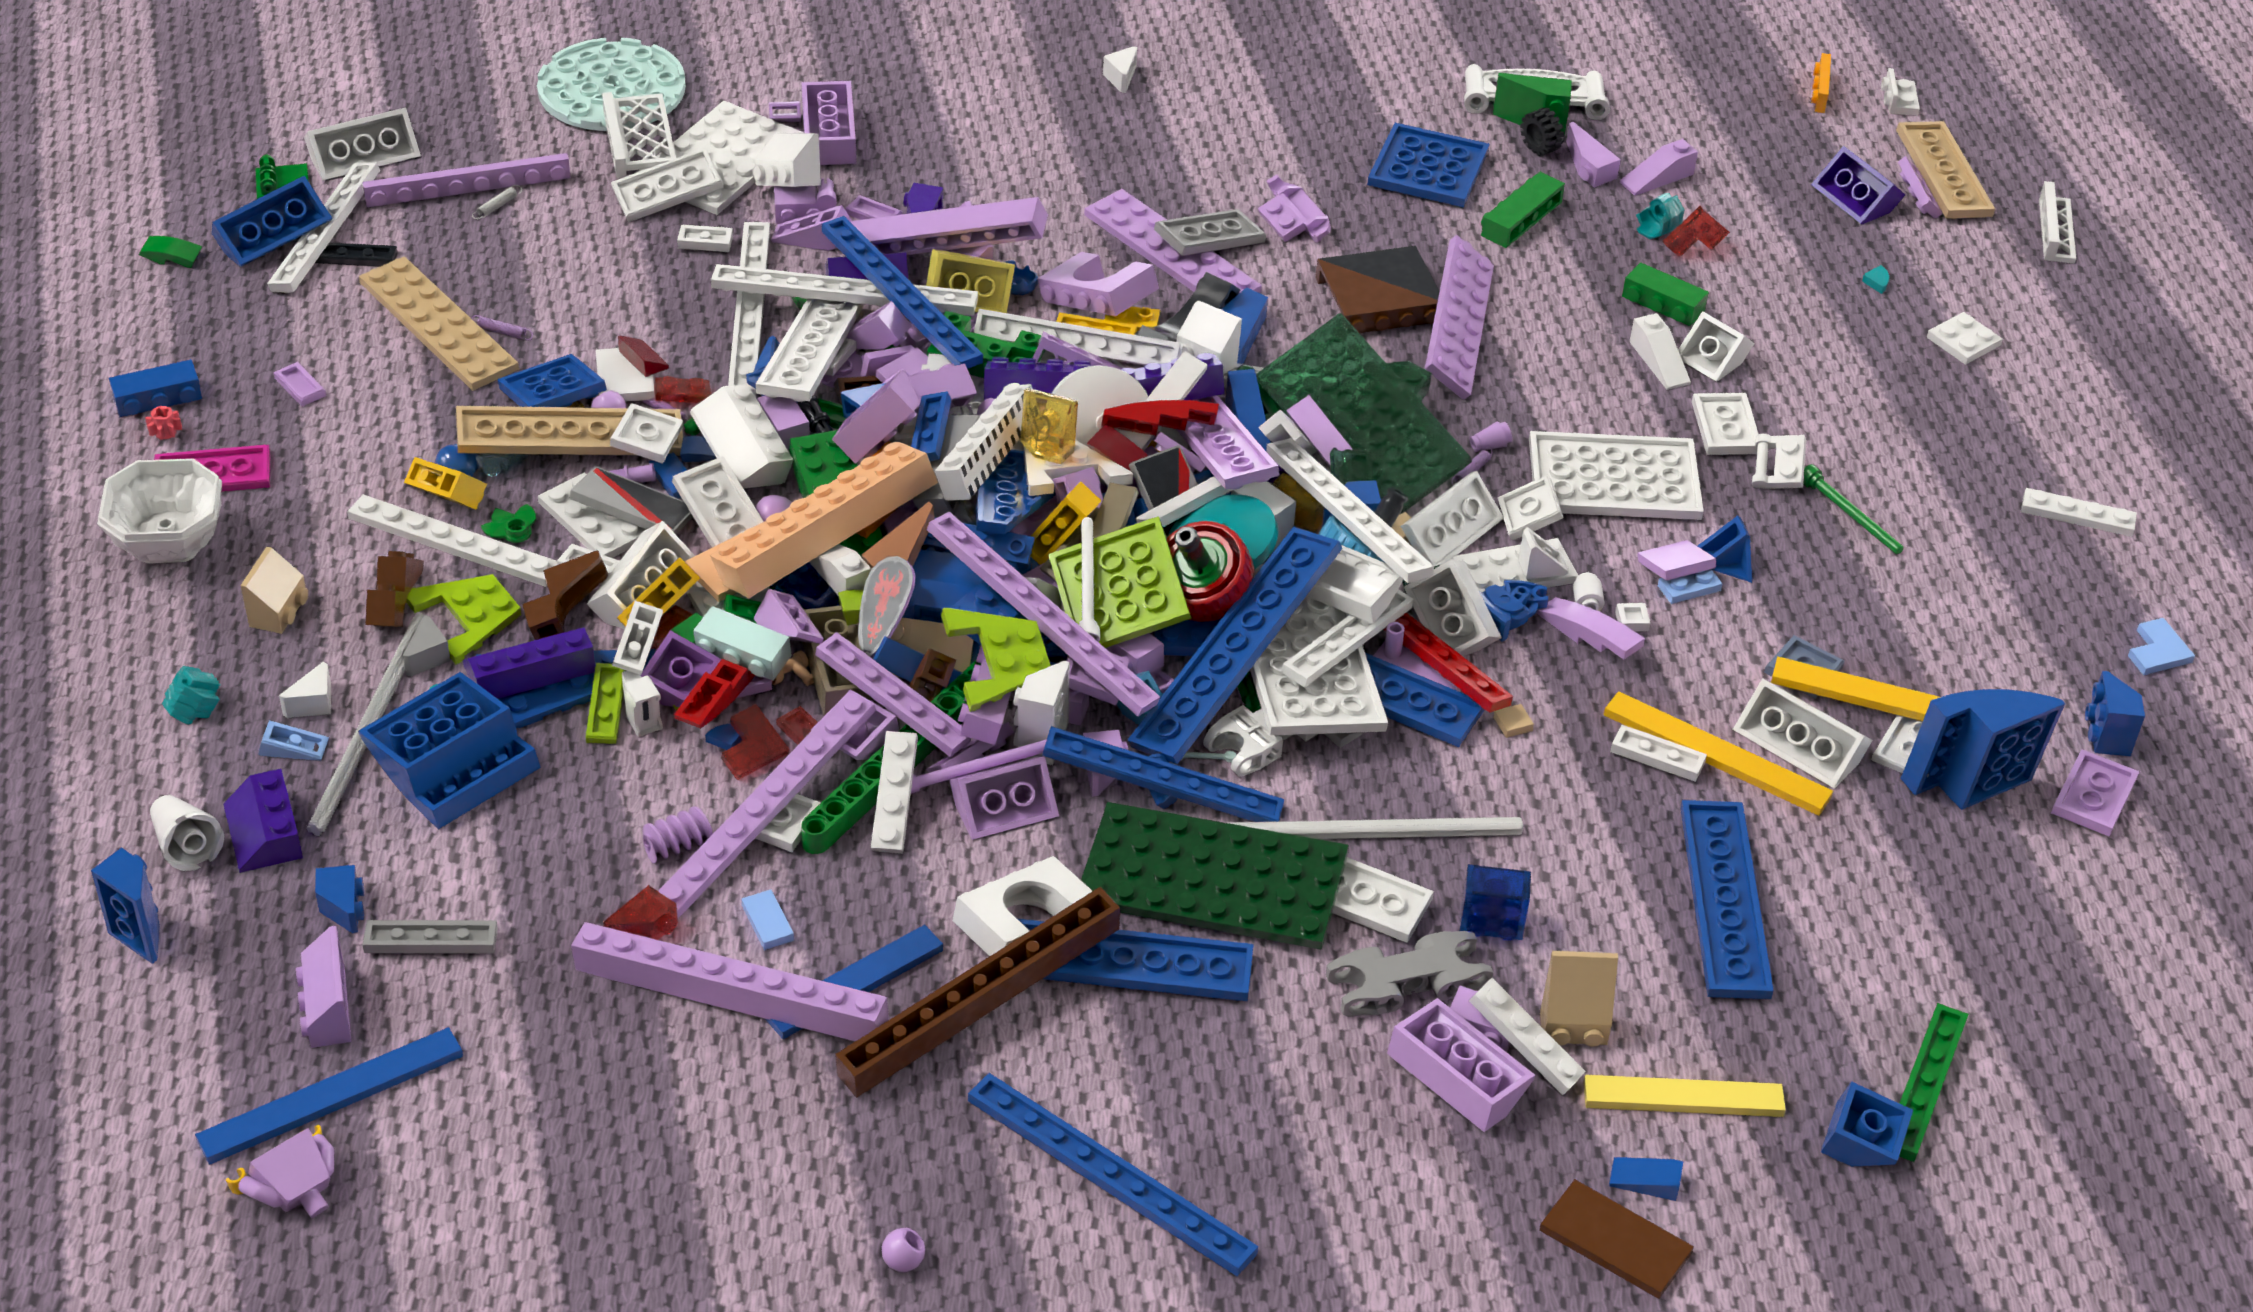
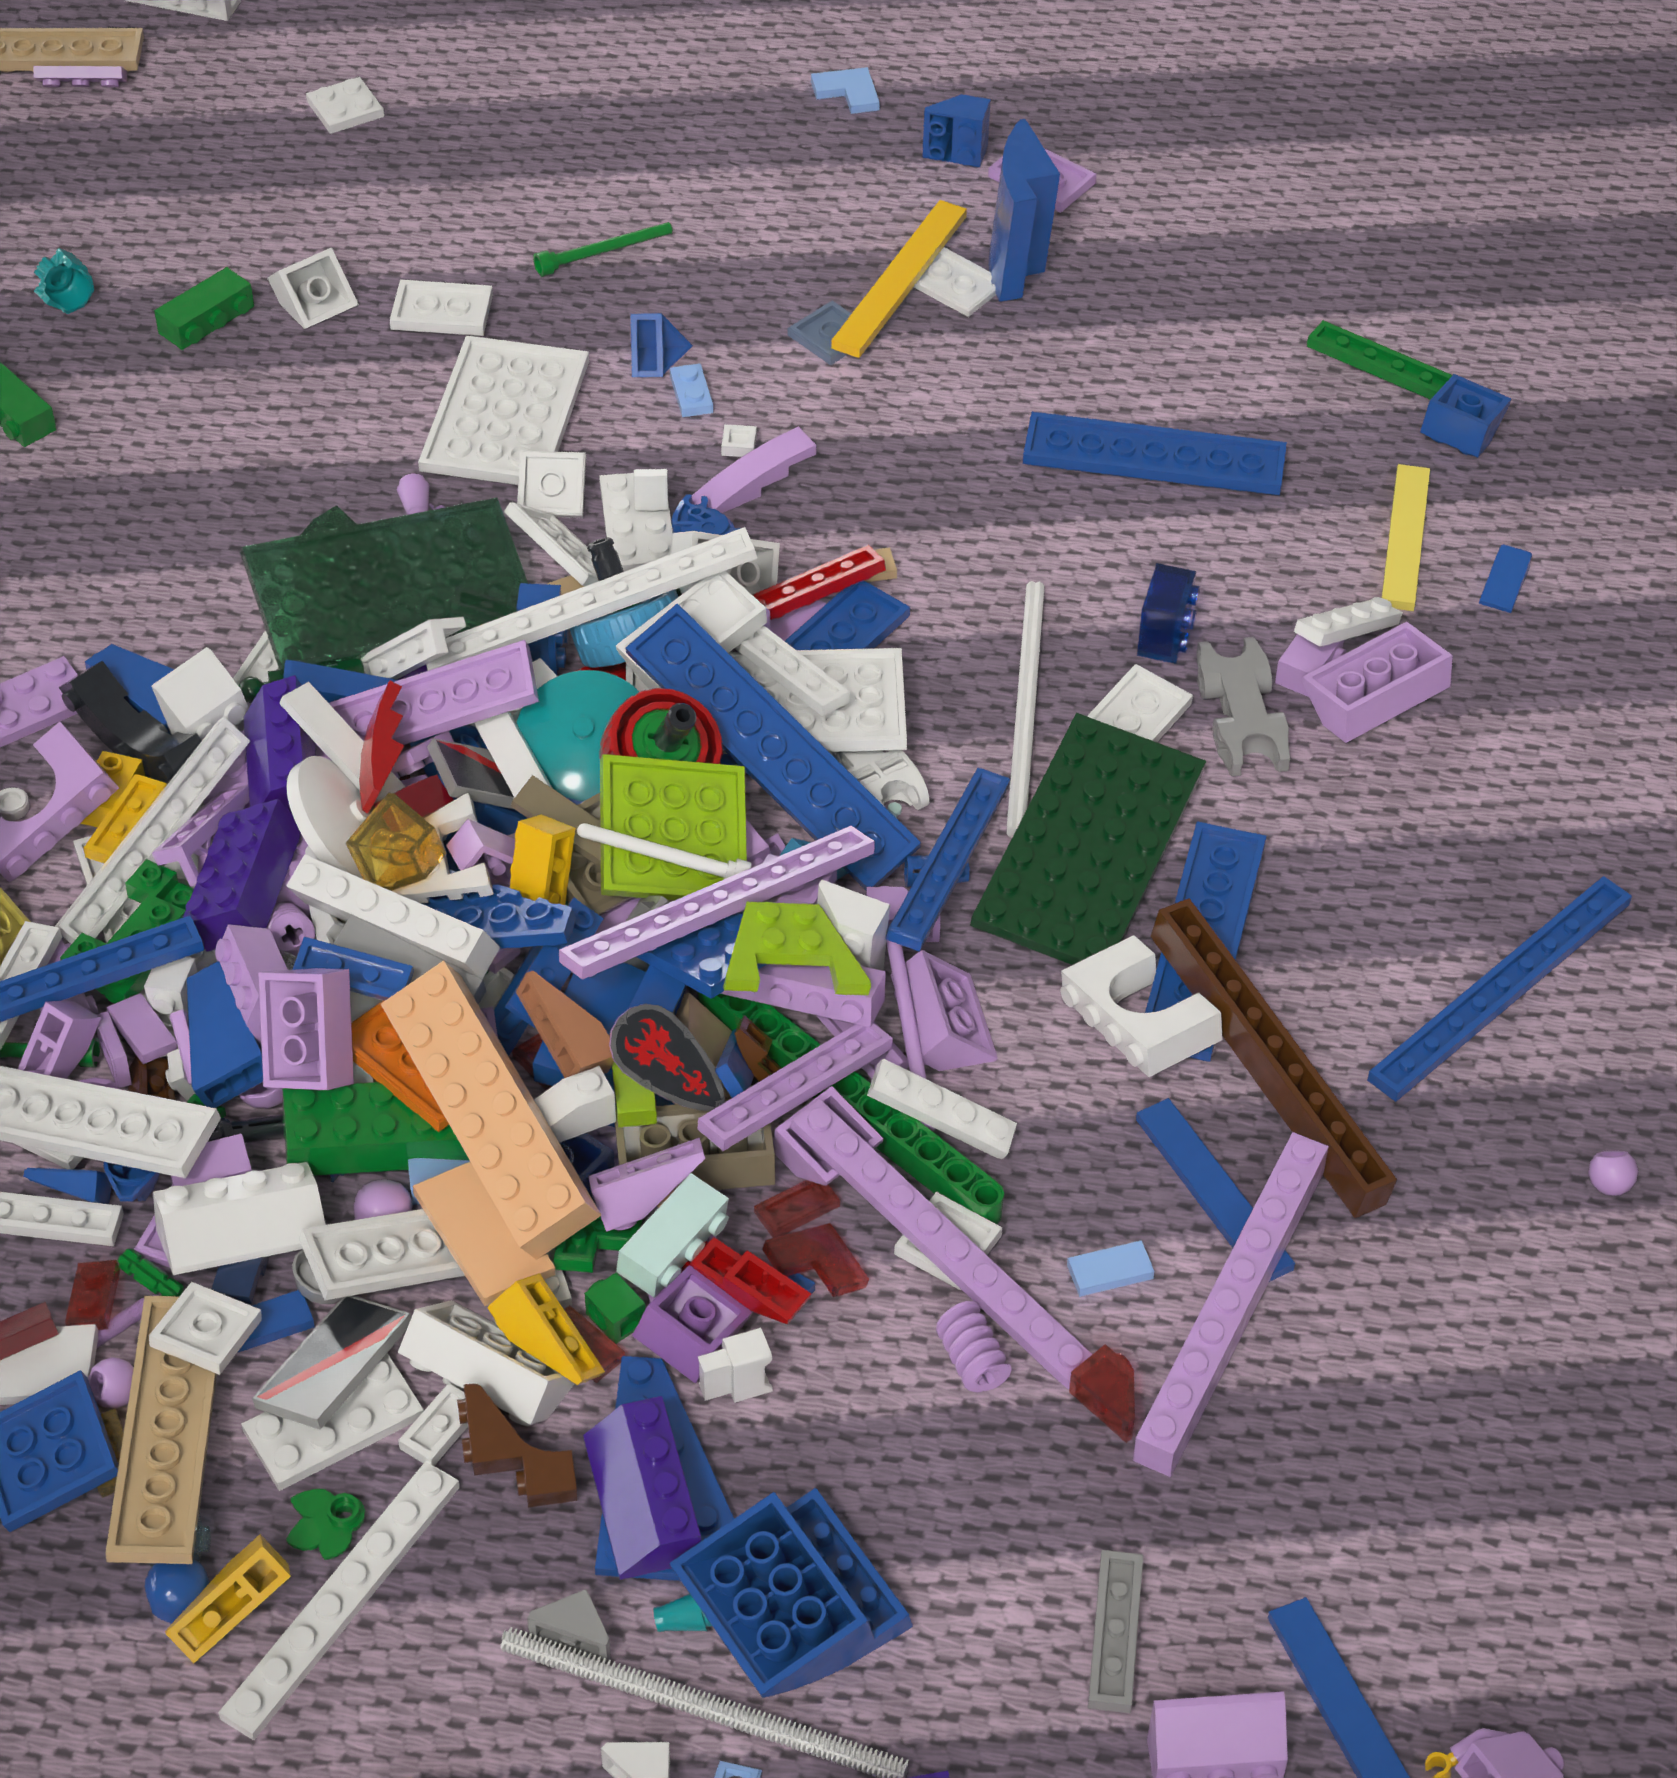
camera: 80 degrees left, 5 degrees up
(338, 895) = (1041, 1734): blue slope -> none
(395, 579) = (438, 1658): reddish brown arch -> none
(477, 604) = (488, 1567): lime wing -> none
(605, 705) = (722, 1415): lime tile -> none
(638, 474) = (263, 1363): lavender axle -> none
(638, 638) = (645, 1351): white slope -> none
(1317, 428) = (378, 628): lavender tile -> none
(1381, 288) = (116, 541): reddish brown panel -> none
(1459, 317) = (191, 479): lavender plate -> none
(1579, 997) = (1314, 572): tan slope -> none
(1589, 591) = (698, 465): white brick -> none
(1616, 1238) = (1578, 617): reddish brown tile -> none
(1658, 753) = (946, 461): white plate -> none
(1659, 351) = (299, 332): white slope -> none
(1677, 560) = (660, 387): tile -> none
(1697, 226) = (112, 258): clear red tile -> none
(1721, 753) = (945, 422): yellow tile -> none
(1788, 461) = (529, 269): white plate -> none
(1801, 734) = (938, 350): white slope -> none
(1857, 187) = (64, 119): dark purple slope -> none
(1877, 279) = (224, 144): teal tile -> none
(2079, 512) = (641, 92): white plate -> none

